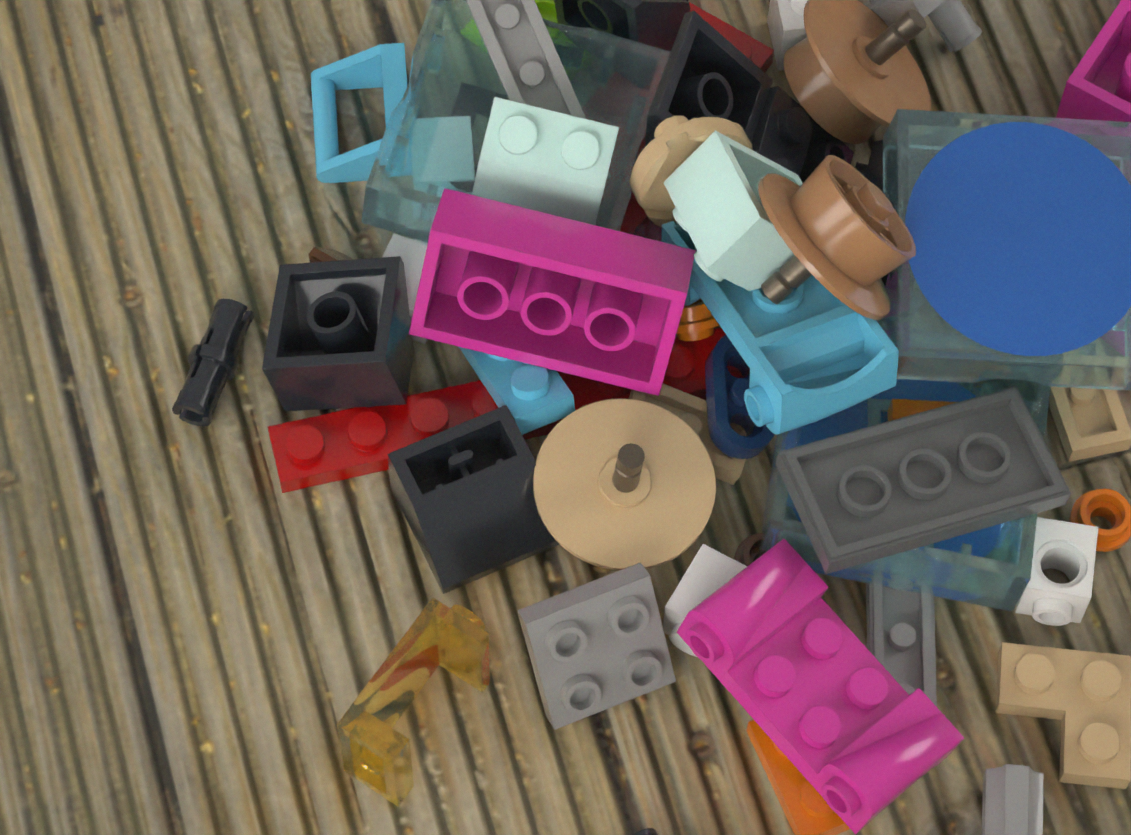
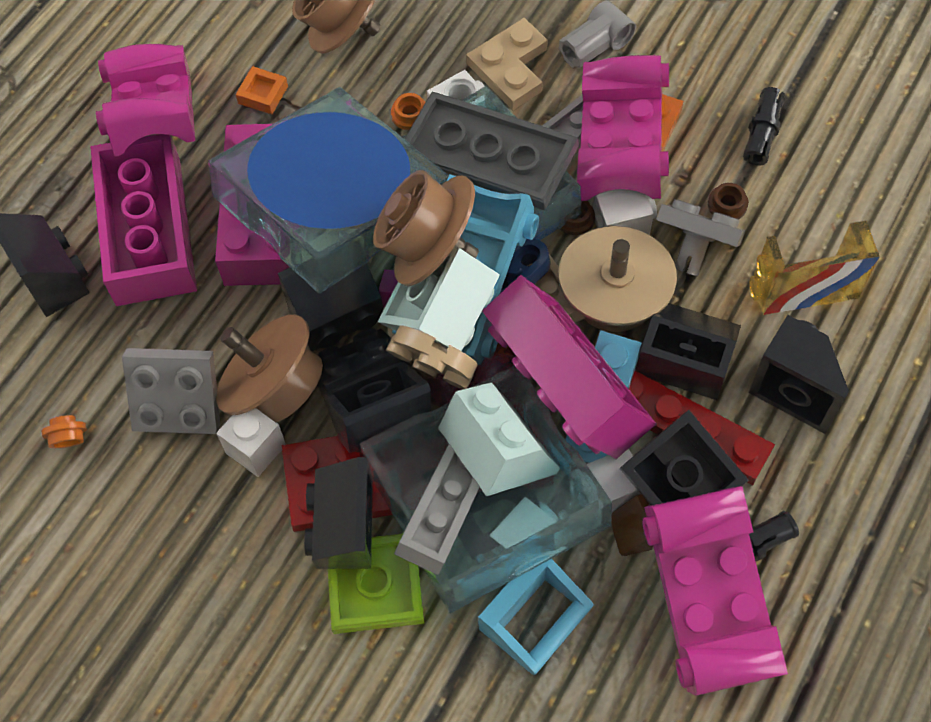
camera: 130 degrees left, 0 degrees up
(198, 250) = (713, 591): none -> dark pink piece
(313, 551) = (801, 375): none -> black slope
(612, 727) = (731, 194): none -> reddish brown plate

